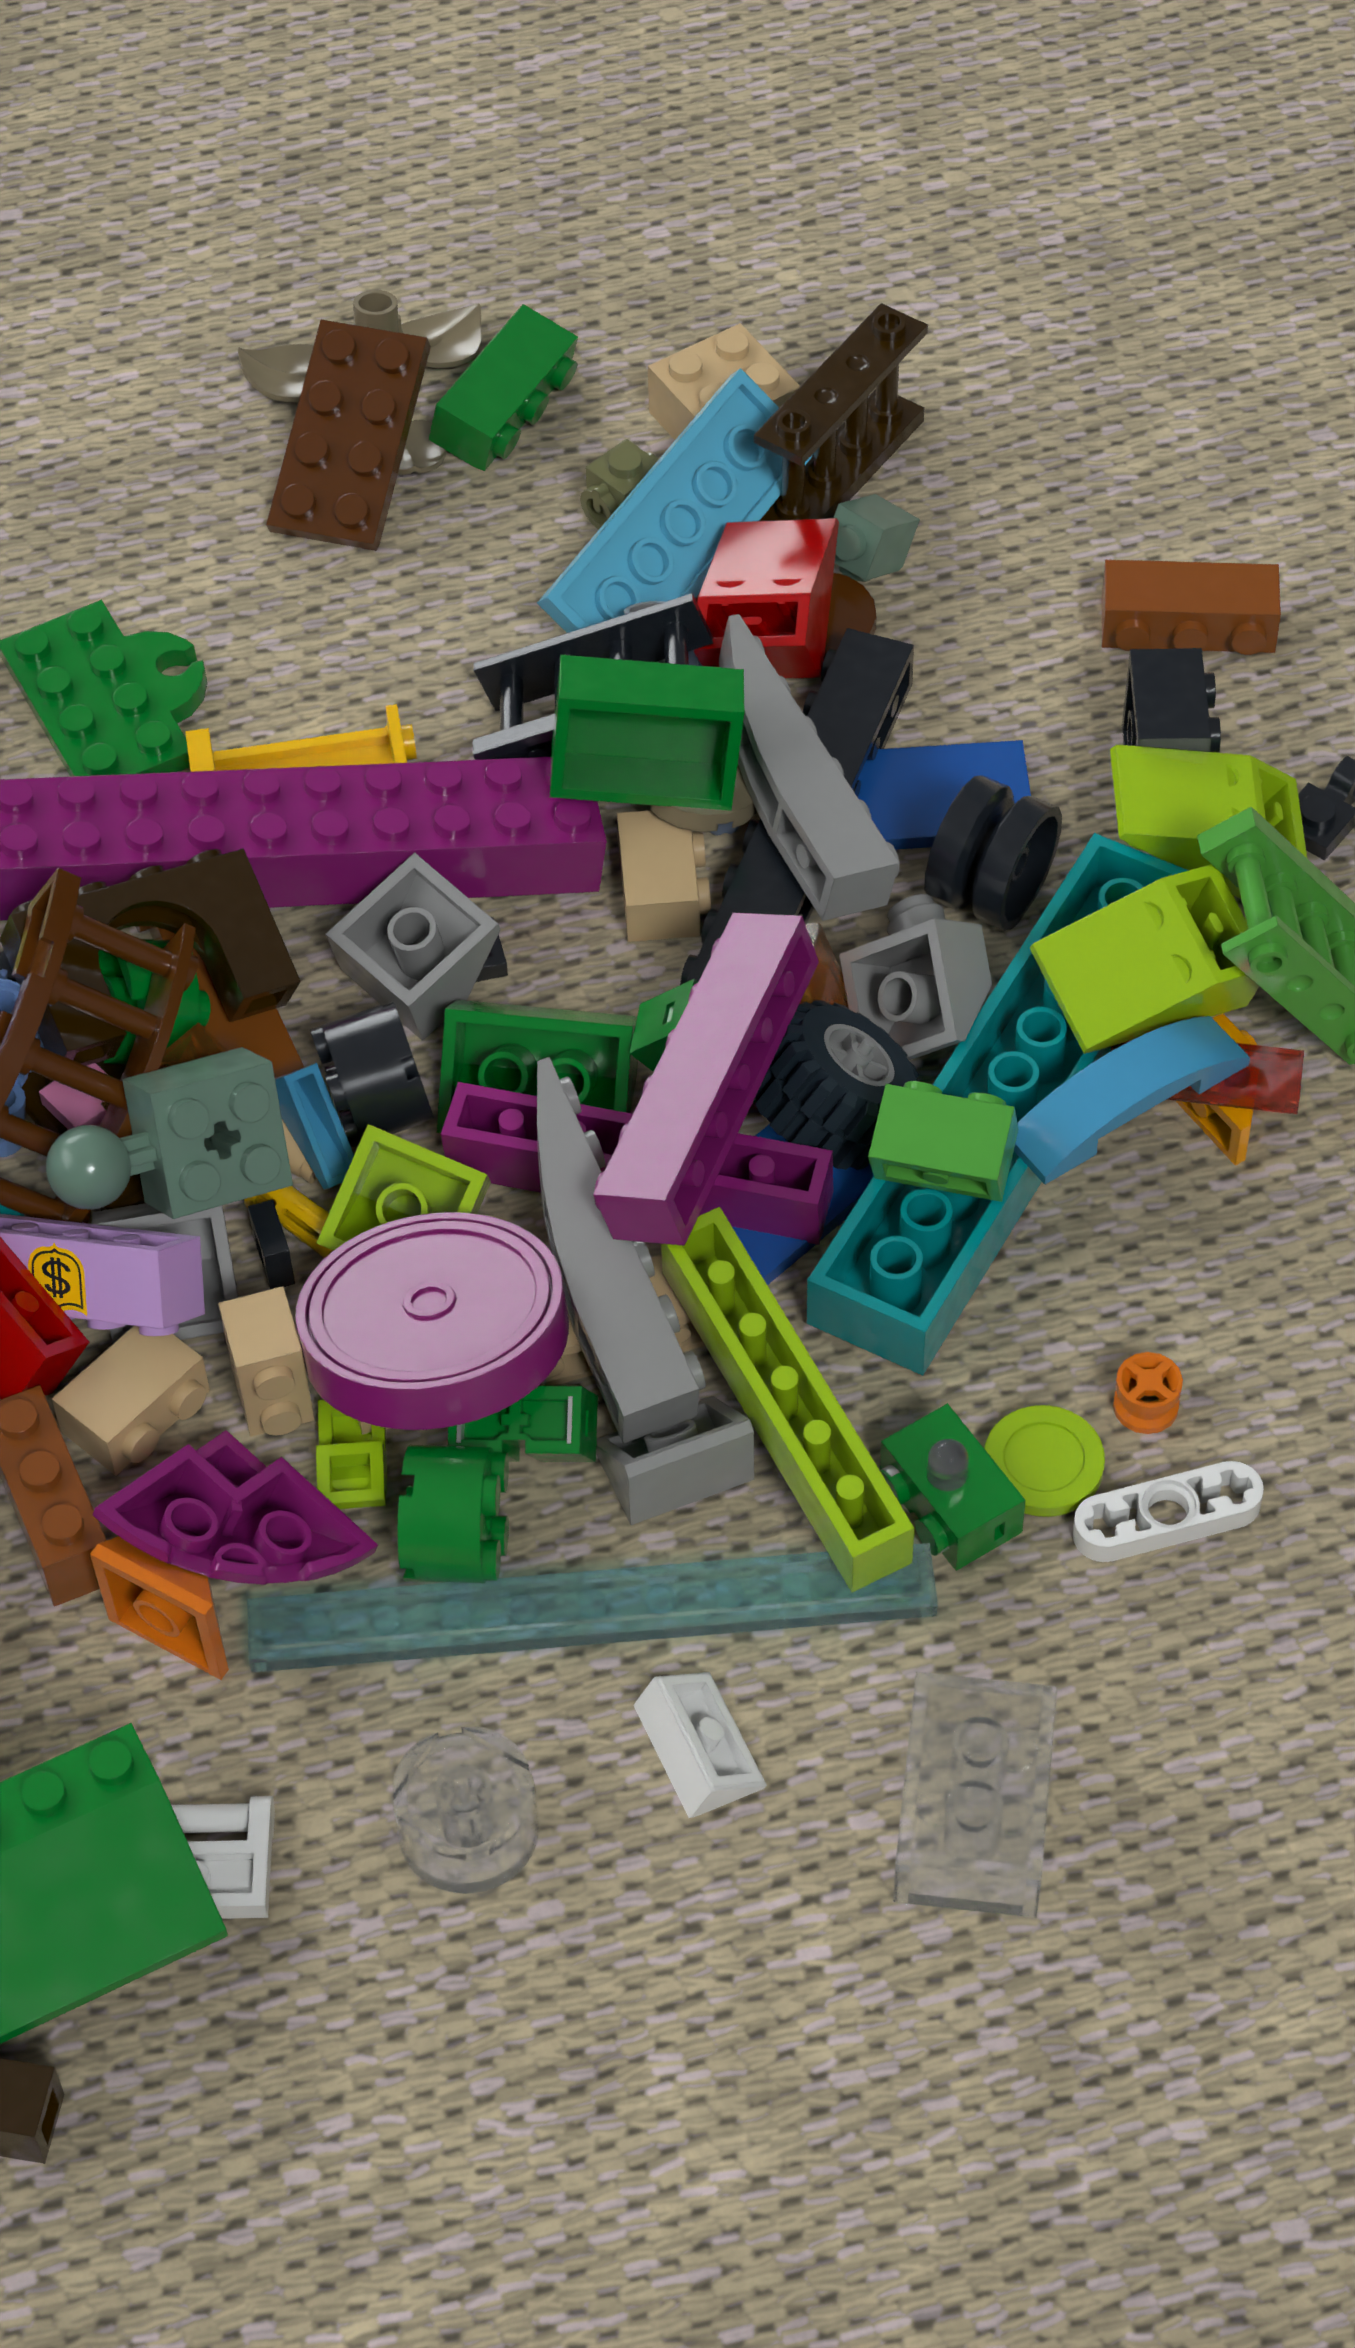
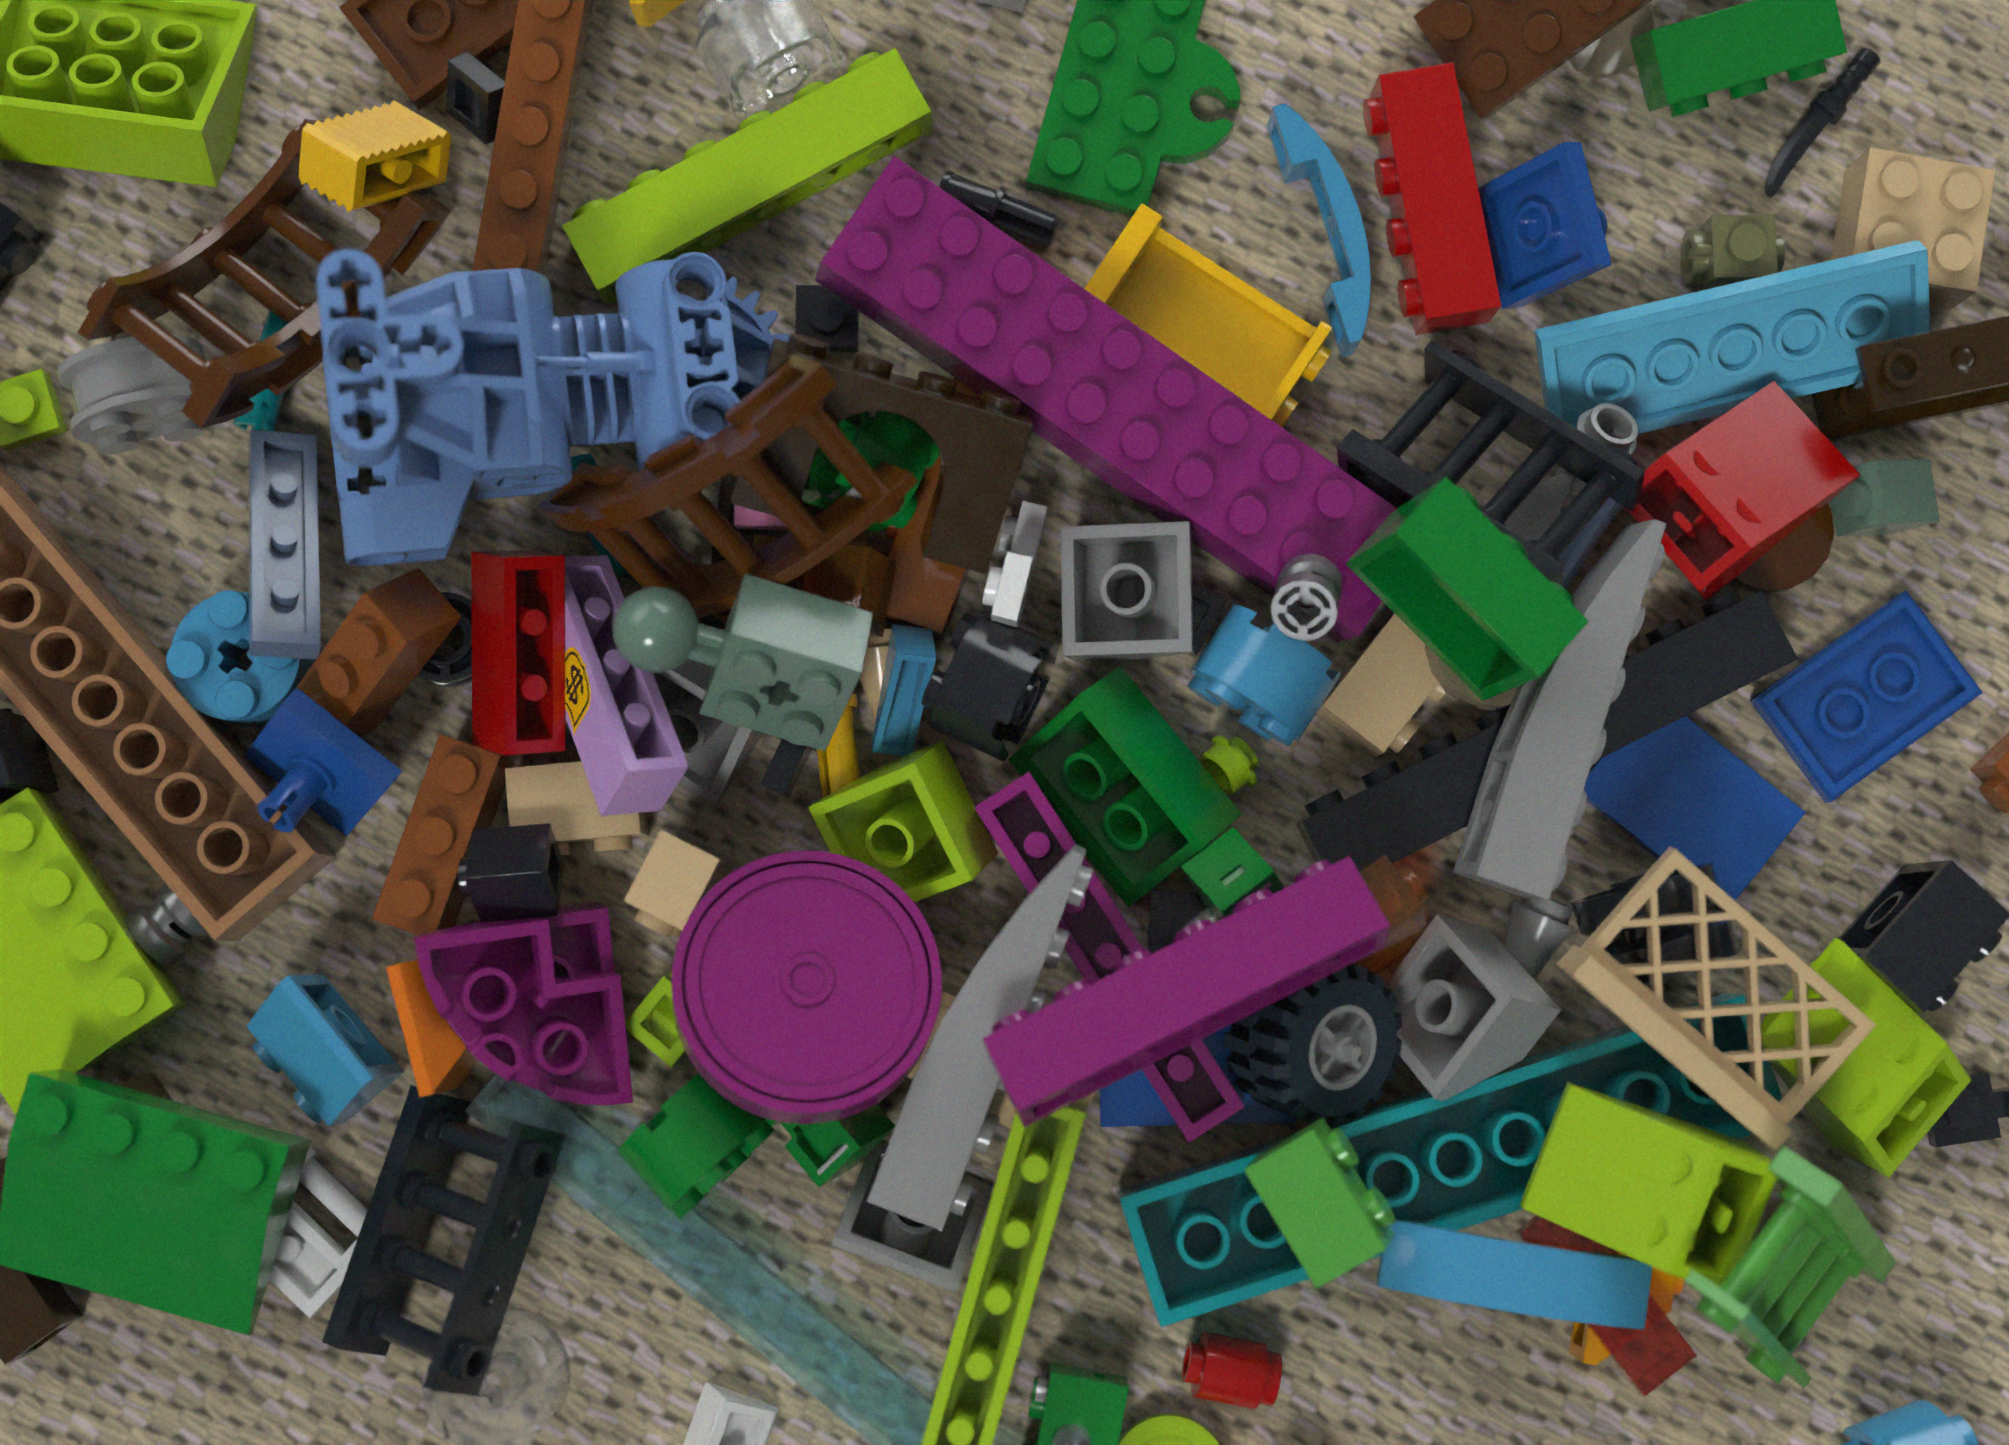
camera: 40 degrees right, 30 degrees up
(81, 1685) = (321, 1048): none -> dark azure slope
(125, 1442) = (513, 872): none -> black brick
(261, 1739) = (397, 1226): none -> black fence
(274, 639) = (1305, 155): none -> dark azure slope
(323, 989) = (1008, 587): none -> white plate
(390, 598) = (1432, 199): none -> red brick
(479, 555) = (1544, 226): none -> blue tile
(533, 830) = (1311, 582): none -> flat silver wheel
(565, 920) = (1264, 675): none -> dark azure brick
(599, 389) = (1825, 108): none -> black piece
(605, 991) = (1230, 763): none -> lime plate
(987, 657) = (1866, 696): none -> blue tile
(1014, 1354) = (1232, 1371): none -> red brick
(1072, 866) = (1694, 1051): none -> tan fence

